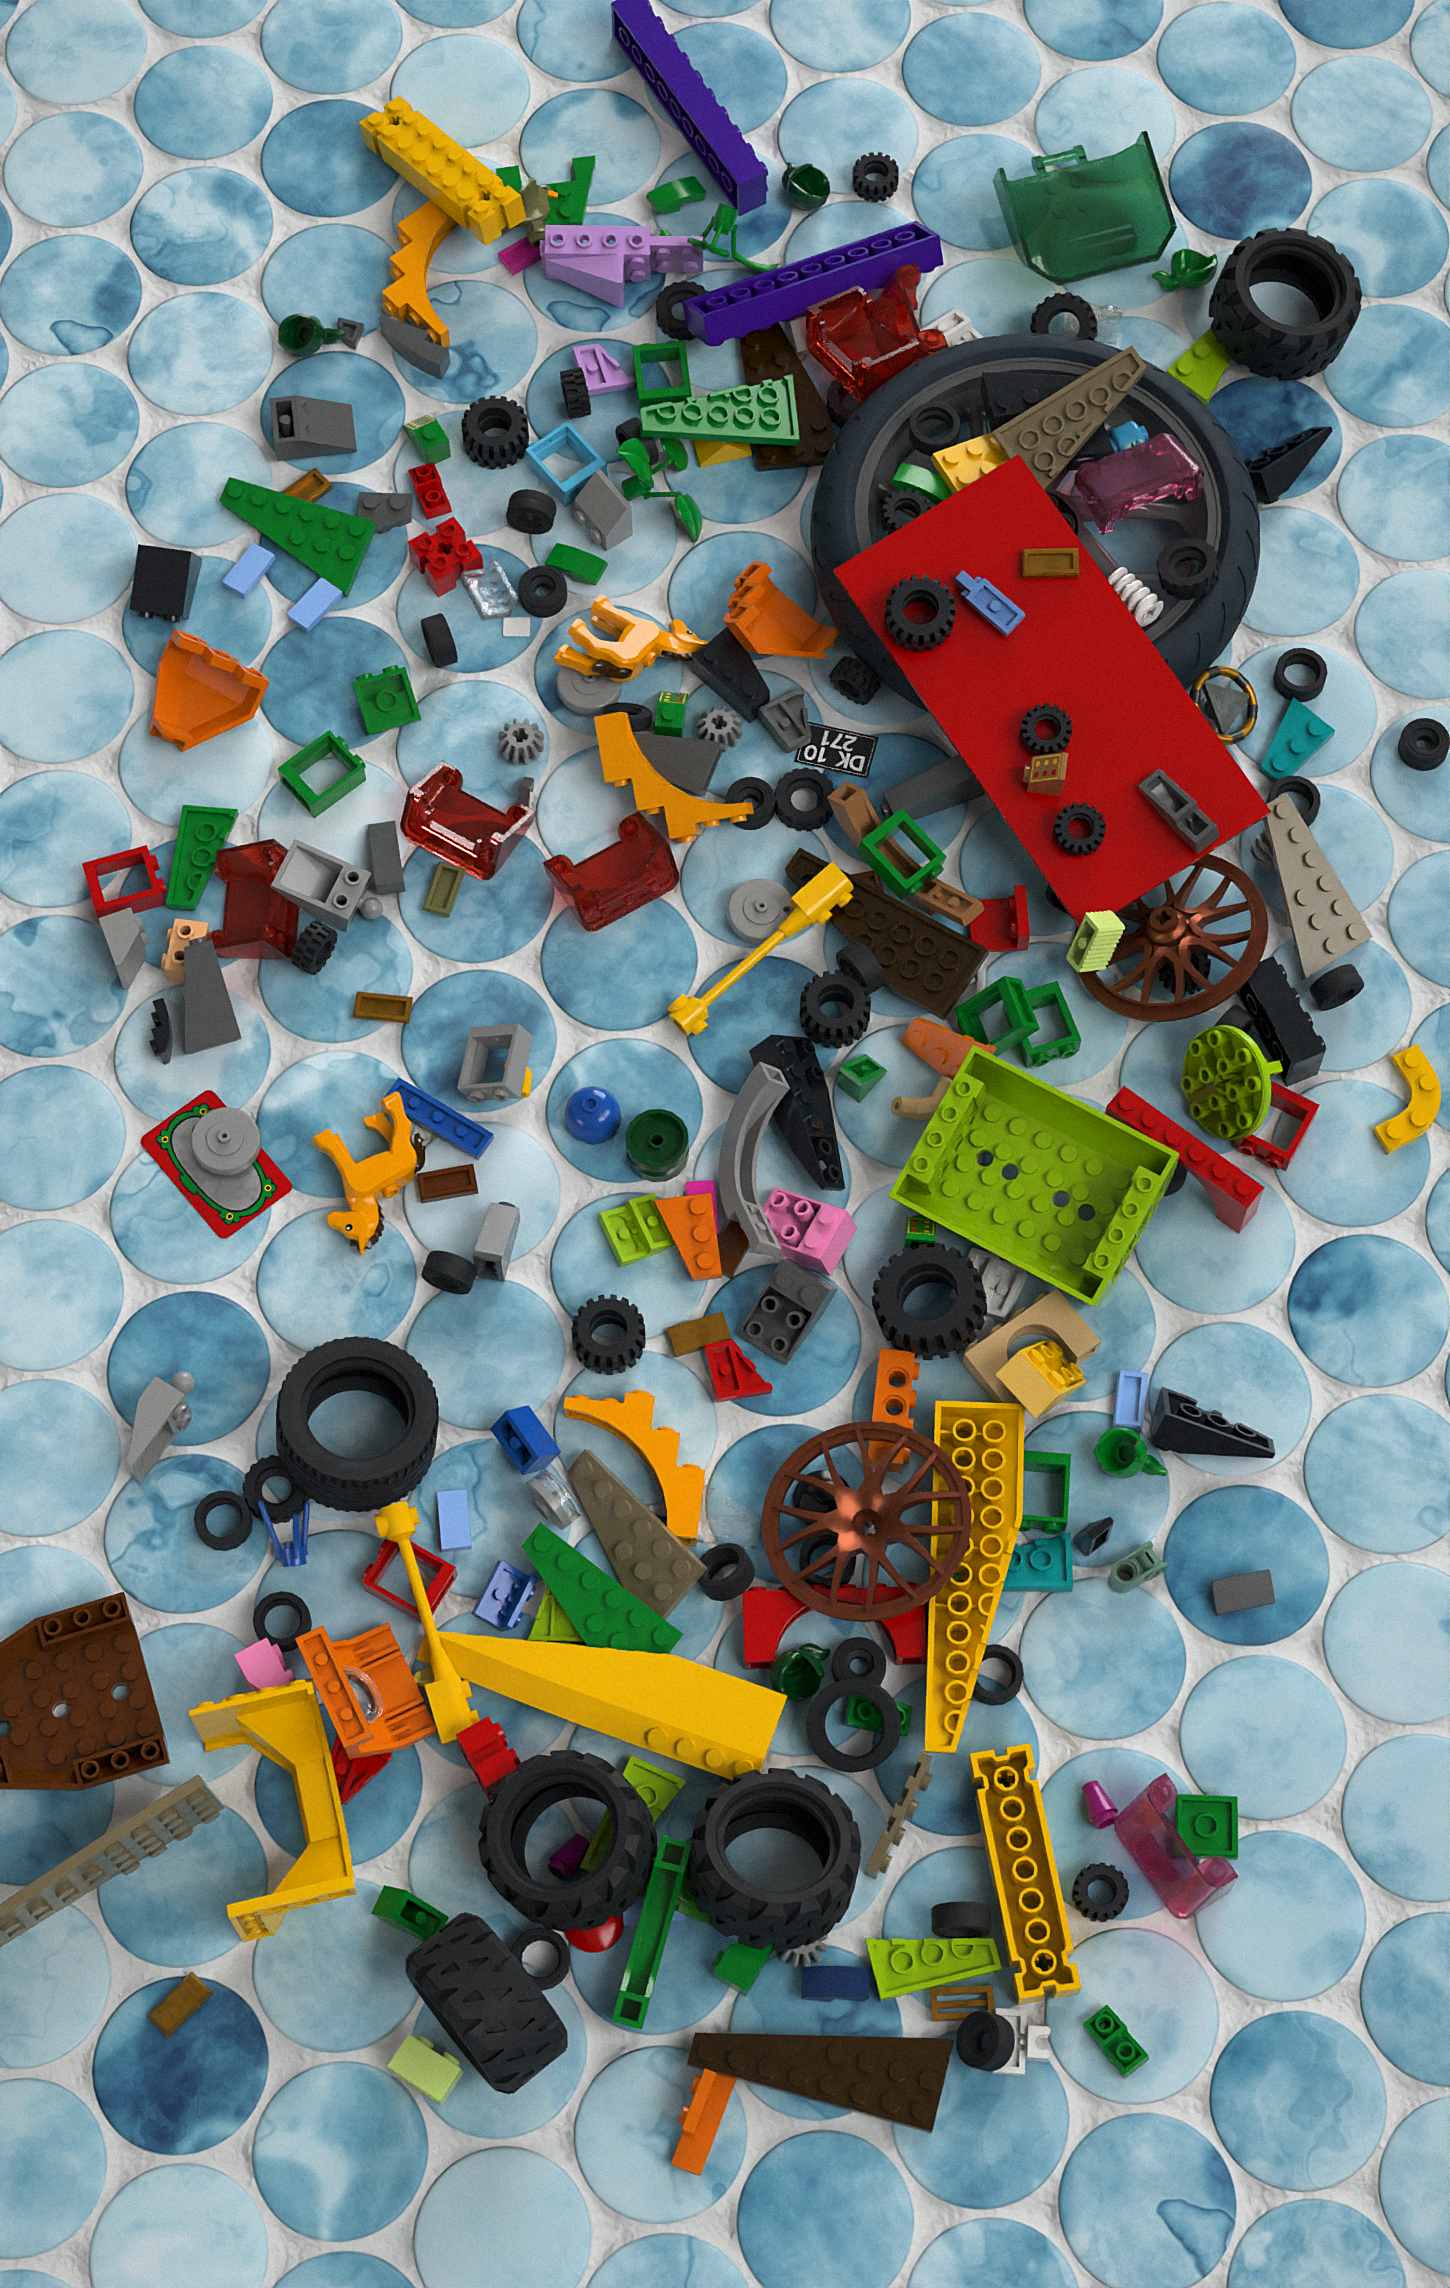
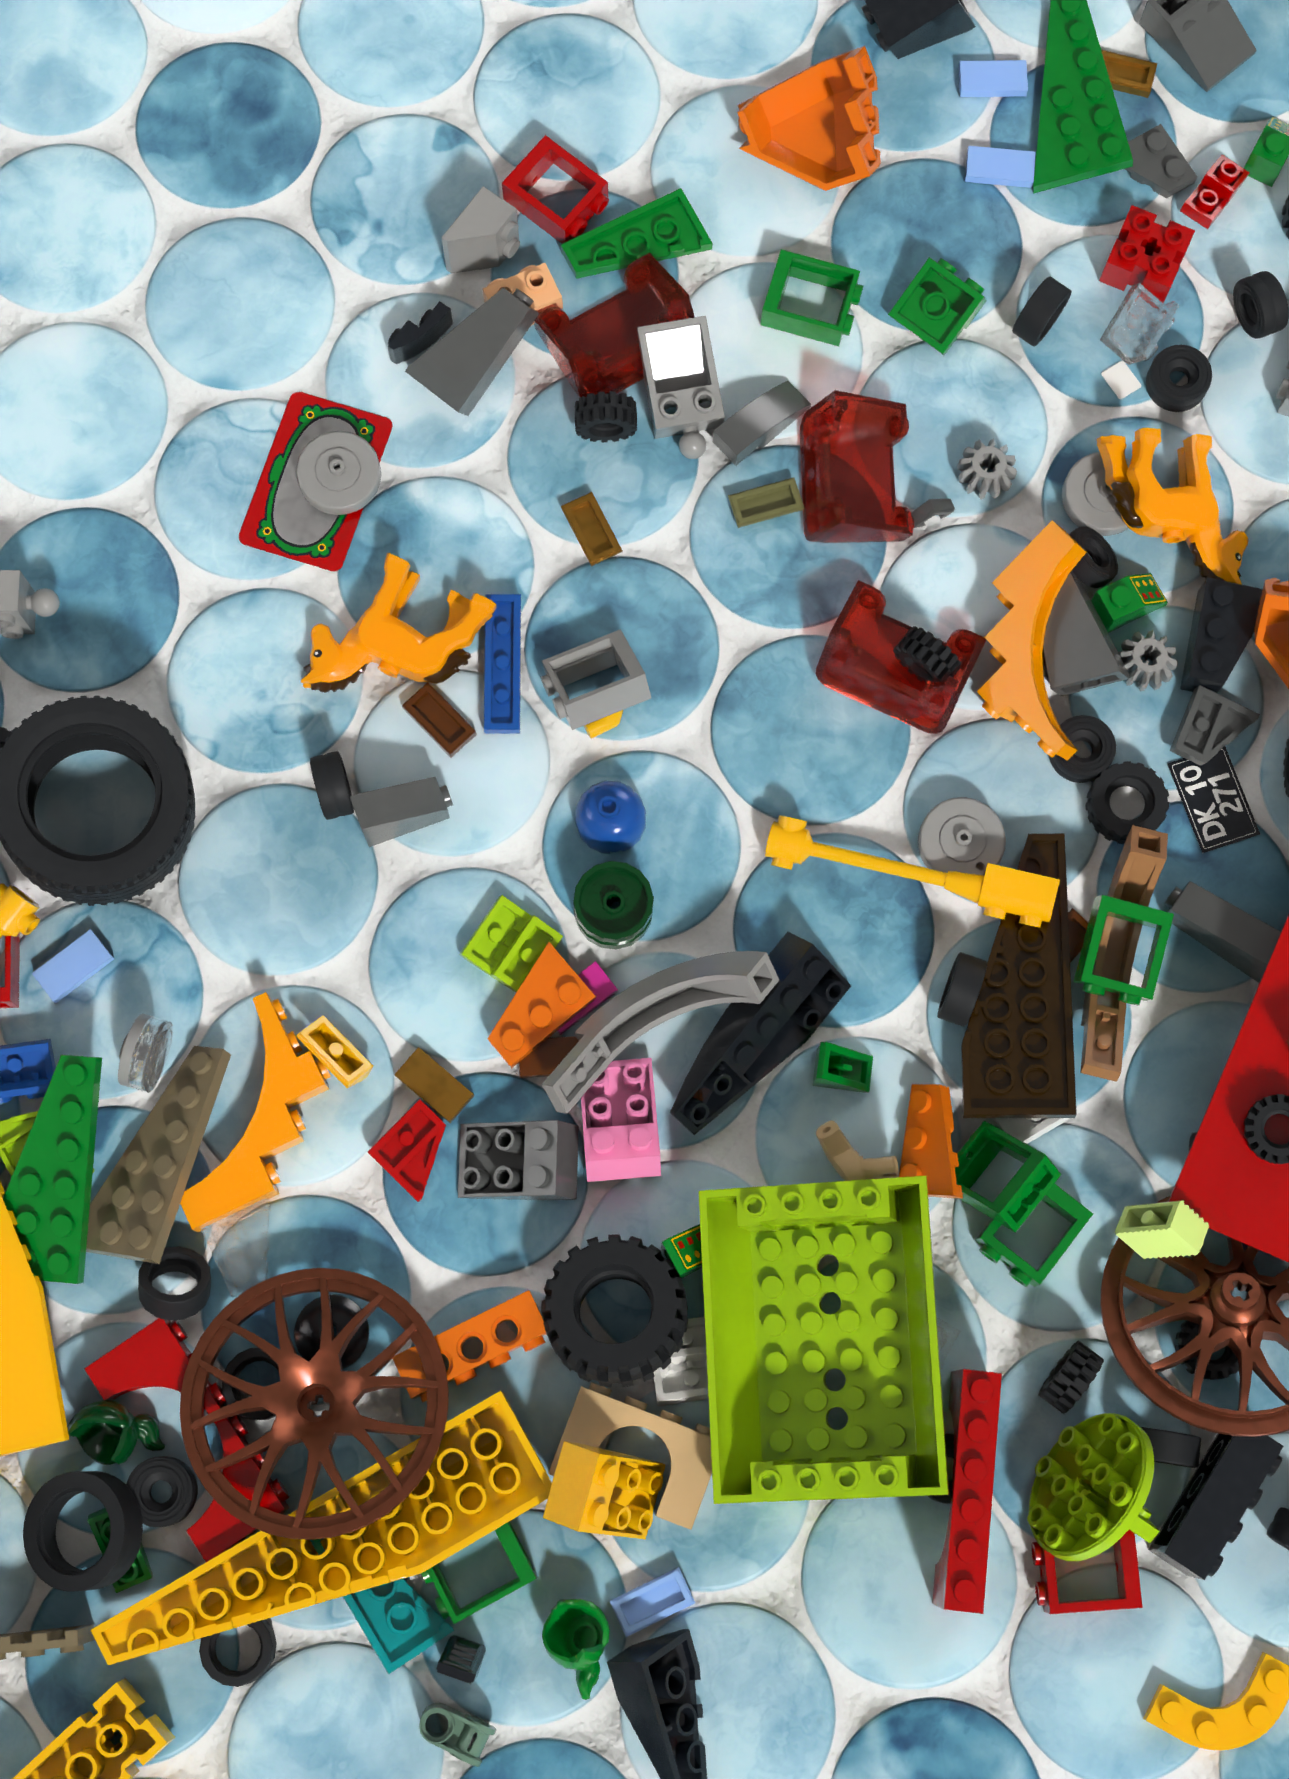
camera: 55 degrees right, 10 degrees up
(525, 1440) = (196, 982): blue brick -> none
(578, 563) = (1237, 391): green slope -> none
(608, 1312) = (357, 963): black tyre -> none
(625, 852) = (926, 656): none -> black tyre
(635, 1378) = (335, 1052): none -> yellow slope
(835, 988) = (907, 963): black tyre -> none
(1003, 923) = (1124, 1108): red bracket -> none
(1151, 1058) = (1071, 1377): none -> black tyre

